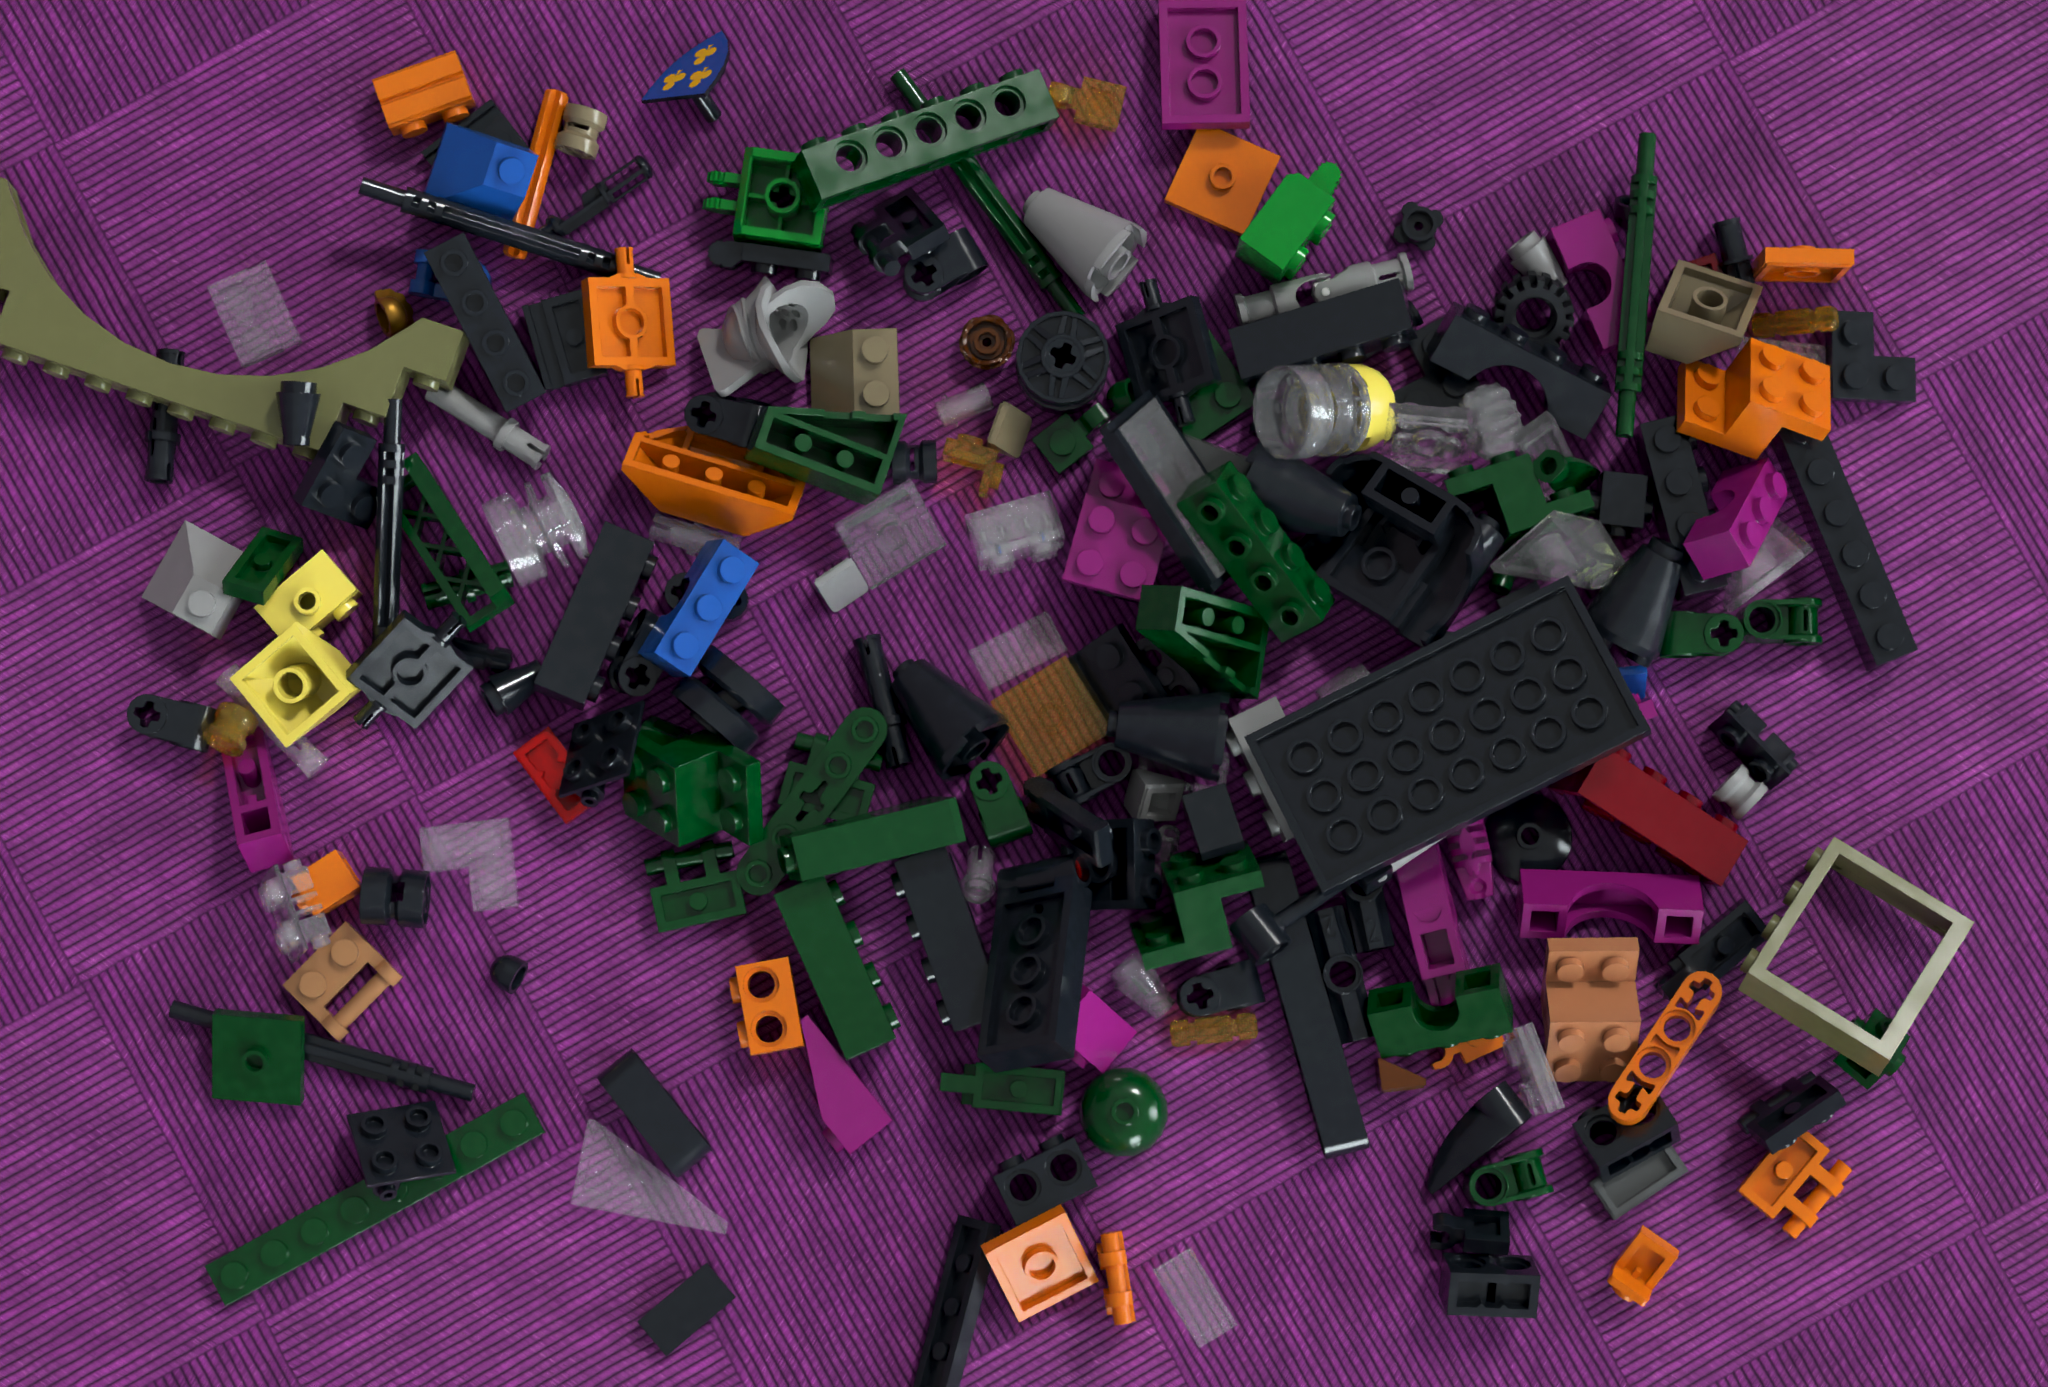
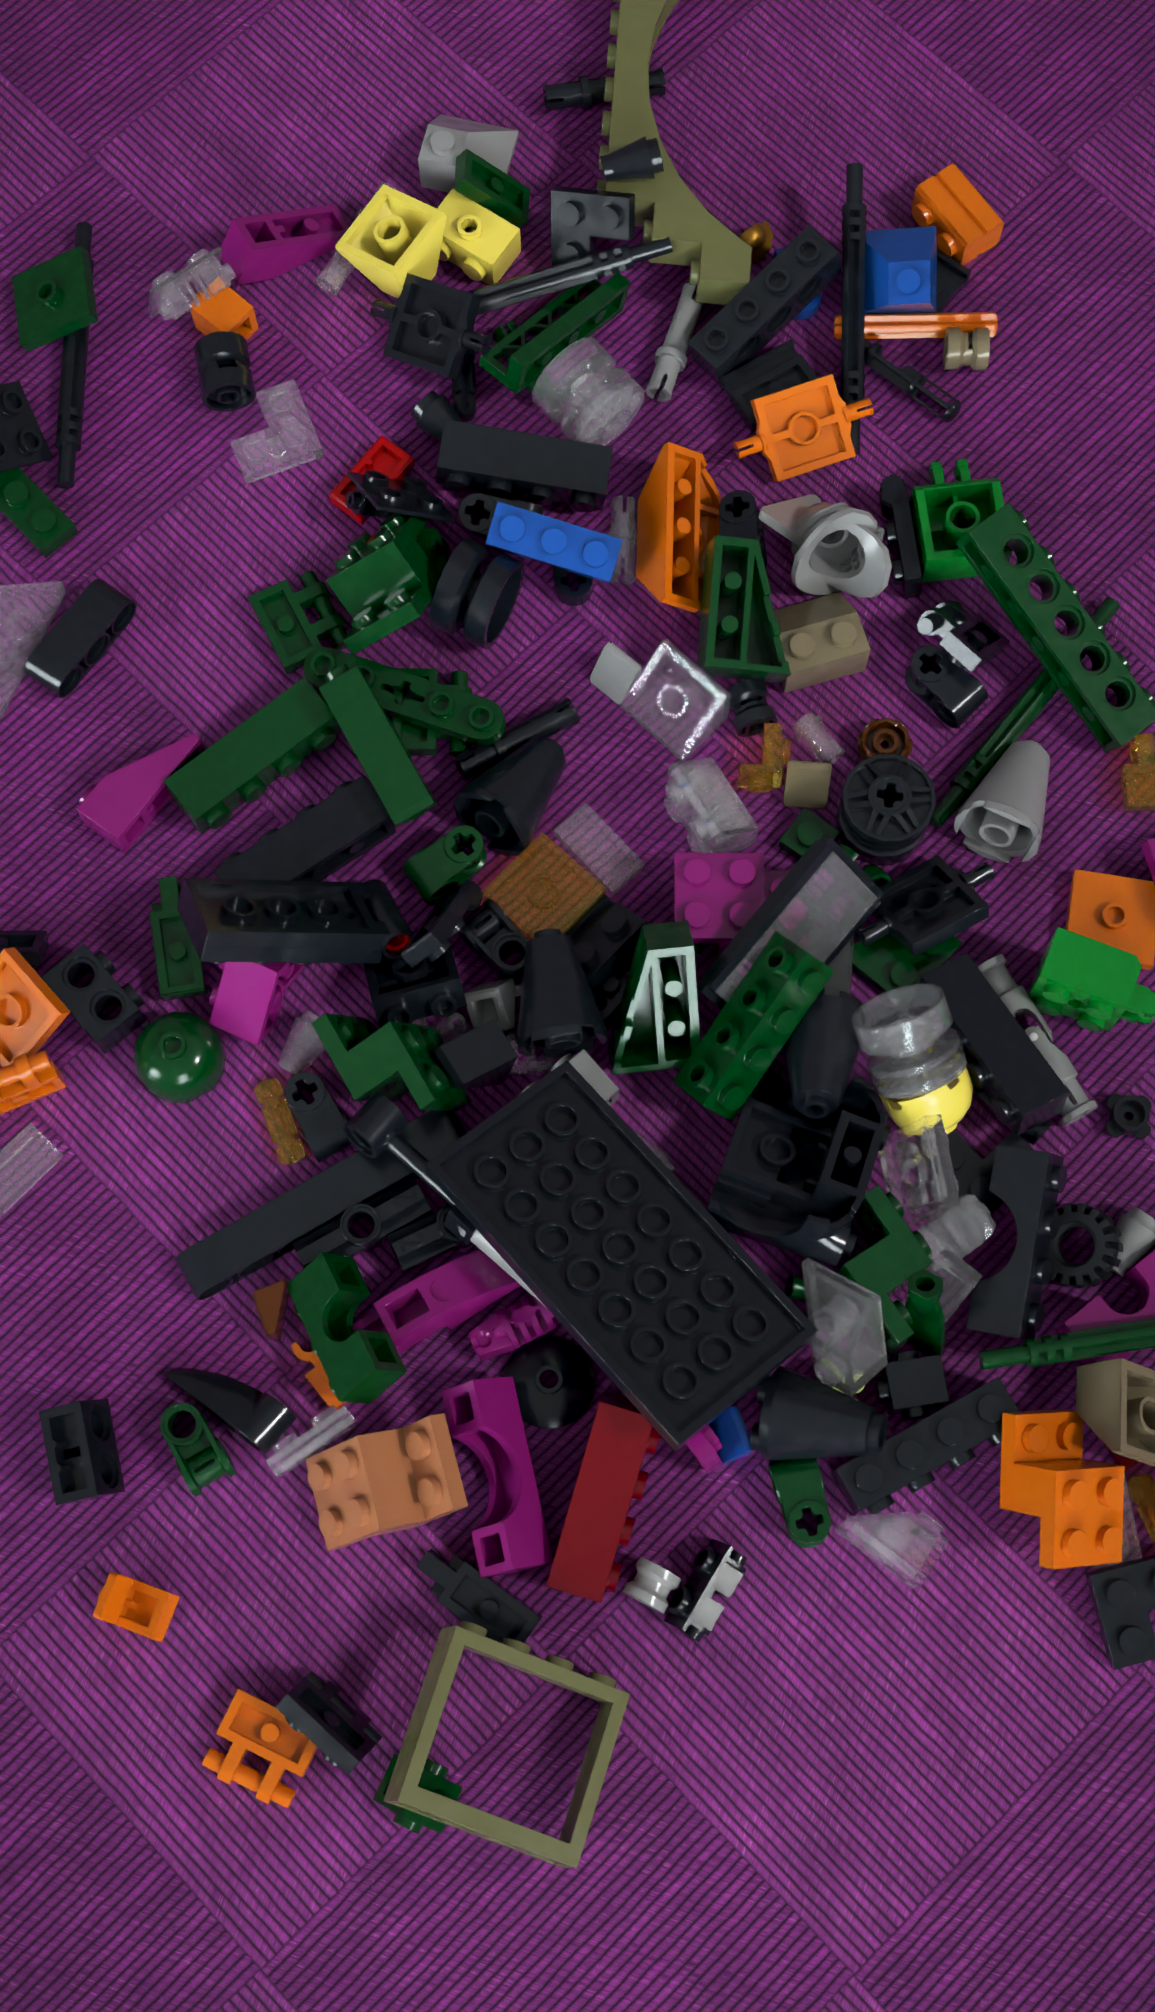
camera: 80 degrees right, 10 degrees down
(179, 721) = (336, 158): black piece -> none
(230, 729) = (340, 202): clear yellow wheel -> none
(254, 314) = (715, 134): clear plate -> none
(332, 970) = (149, 345): medium nougat plate -> none
(508, 972) = (181, 486): black hinge -> none
(694, 76) = (1037, 435): shield -> none
(780, 1004) = (207, 720): orange brick -> none
(978, 882) = (366, 862): clear pin -> none
(1477, 1229) = (135, 1430): black plate -> none
(1632, 1143) = (260, 1559): black brick -> none
(1638, 1182) = (231, 1582): dark grey tile -> none
(1668, 1050) = (360, 1574): orange beam -> none
(1747, 507) = (945, 1508): magenta arch -> none
(1789, 621) = (842, 1588): dark green piece -> none
(1844, 548) = (936, 1631): black brick -> none

